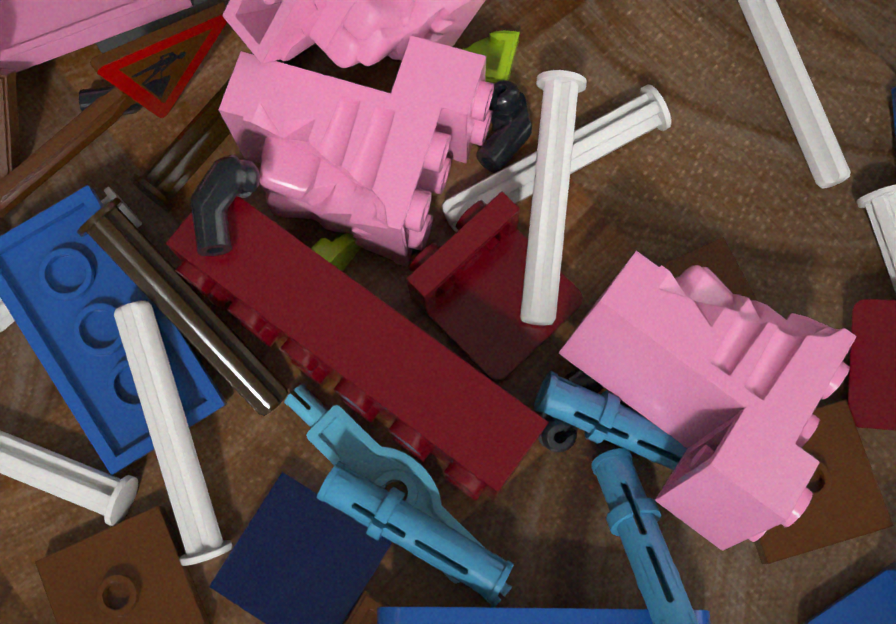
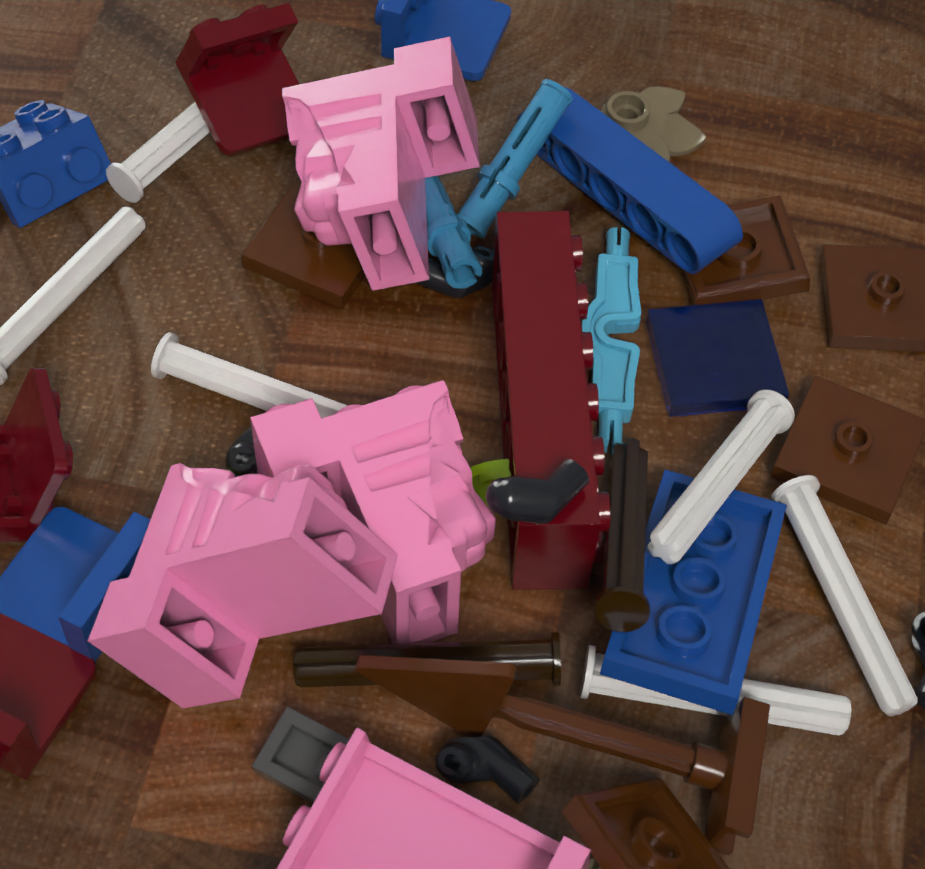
camera: 135 degrees left, 20 degrees down
(422, 535) = (636, 306): dark azure pin -> none
(476, 289) = (411, 350): dark red bracket -> none
(550, 195) = (306, 360): white axle -> none

